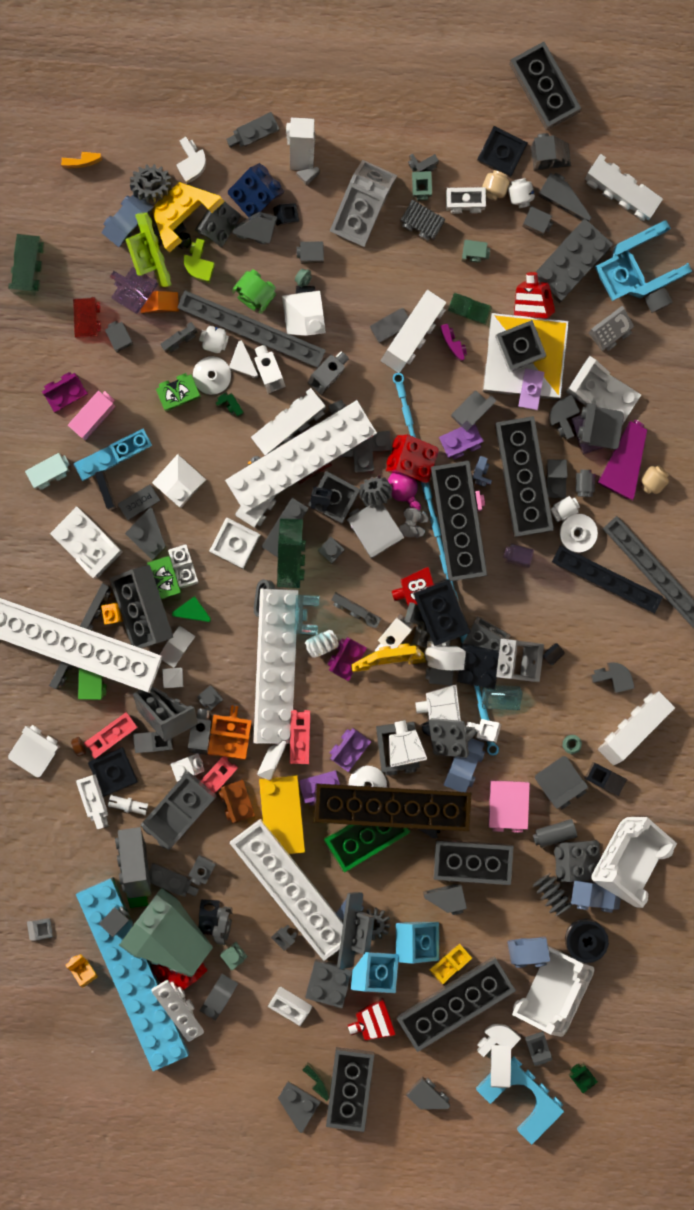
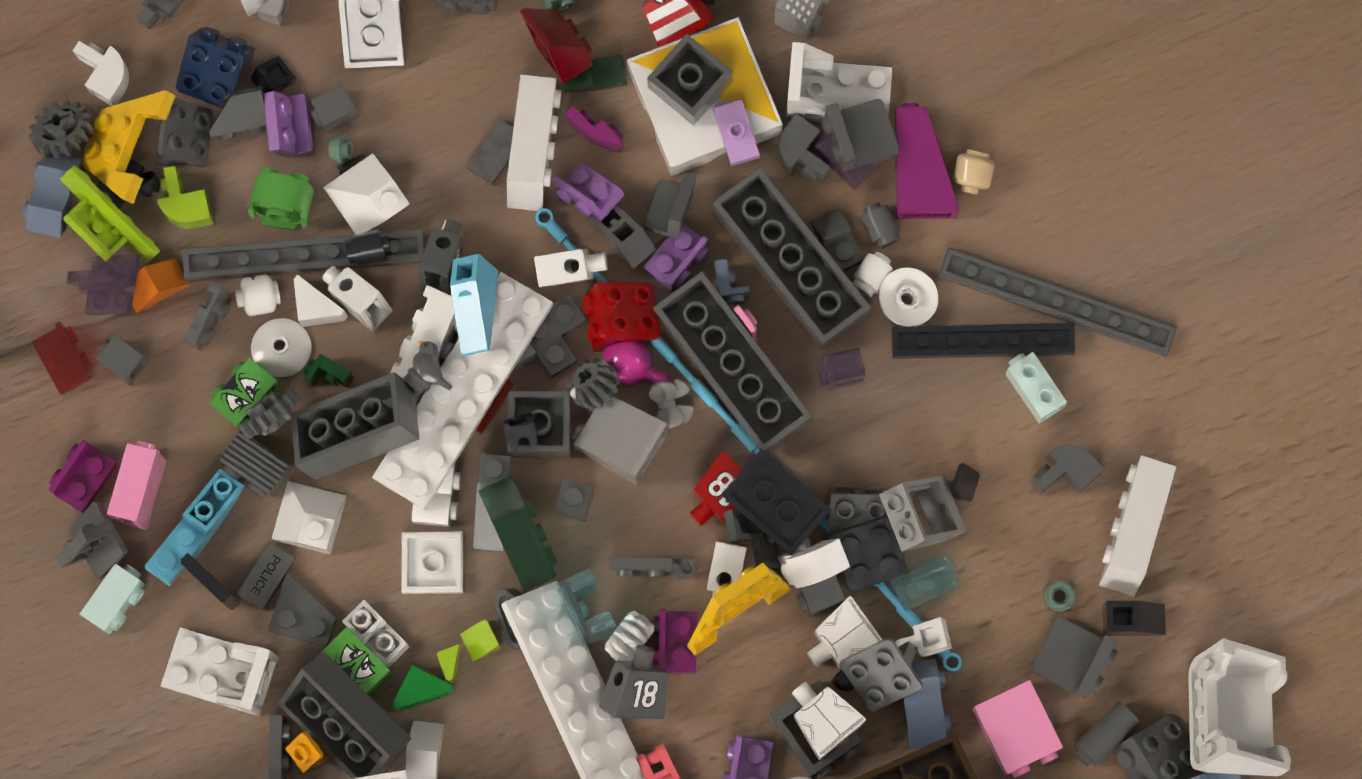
camera: 25 degrees left, 10 degrees down
(53, 433) = (93, 541): none -> dark grey bracket
(164, 436) = (255, 464): none -> dark grey brick
(186, 413) = (269, 413): none -> dark grey gear
(215, 604) = (449, 662): none -> lime slope
(230, 446) = (354, 426): none -> dark grey brick
(239, 600) = (480, 640): none -> lime slope
(281, 248) = (288, 124): none -> medium lavender bracket
(286, 435) = (426, 369): none -> dark grey animal
(289, 345) = (367, 247): none -> black brick
(310, 674) = (636, 688): none -> dark grey torso
(331, 412) = (473, 298): none -> medium azure slope
(388, 413) = (556, 268): none -> white torso
(431, 377) = (588, 191): none -> medium lavender bracket
(434, 403) = (623, 235): none -> dark grey slope
(458, 281) = (558, 42): none -> dark red slope
(622, 620) = (1035, 386): none -> light aqua brick

